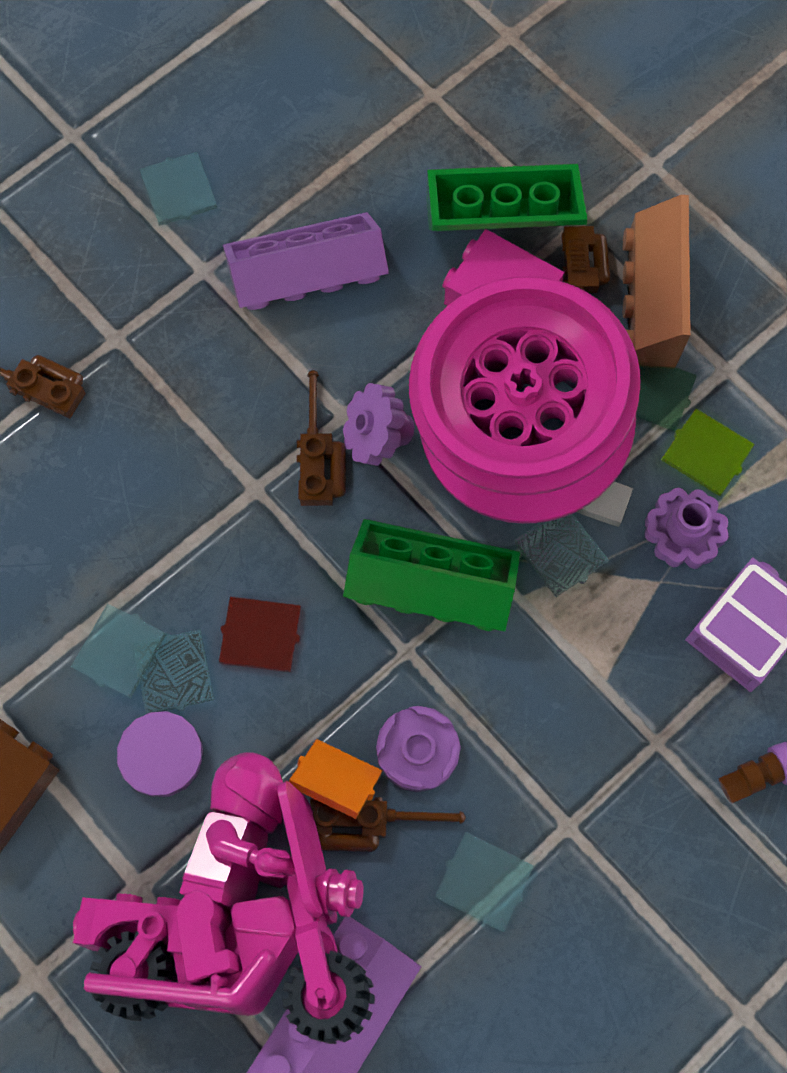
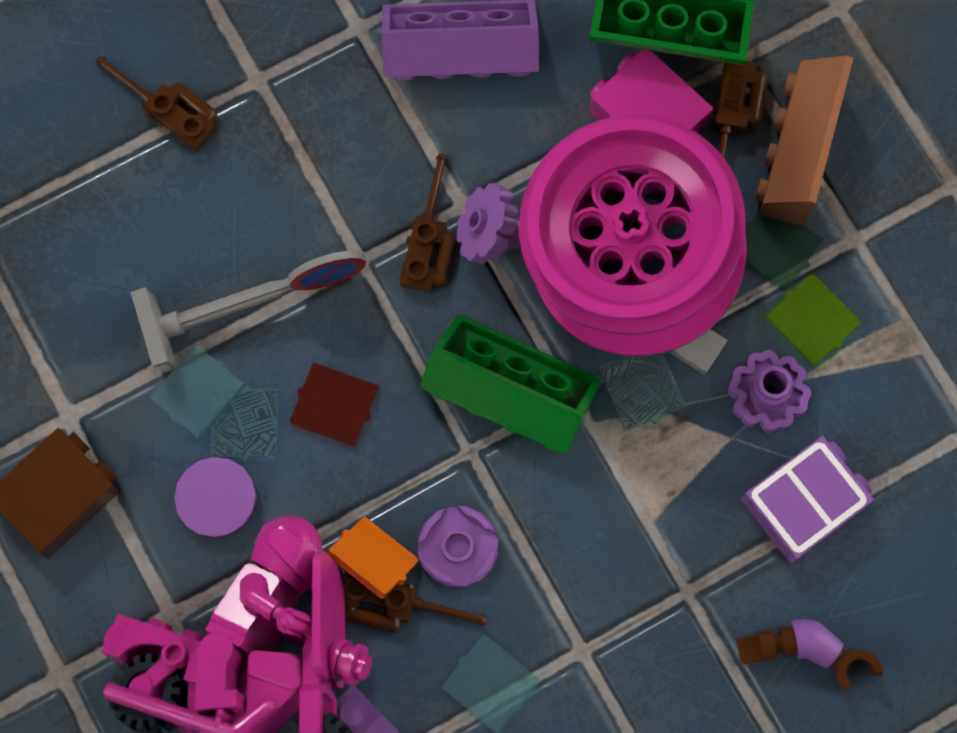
camera: 15 degrees right, 5 degrees up
(209, 510) = (158, 328): none -> light grey piece

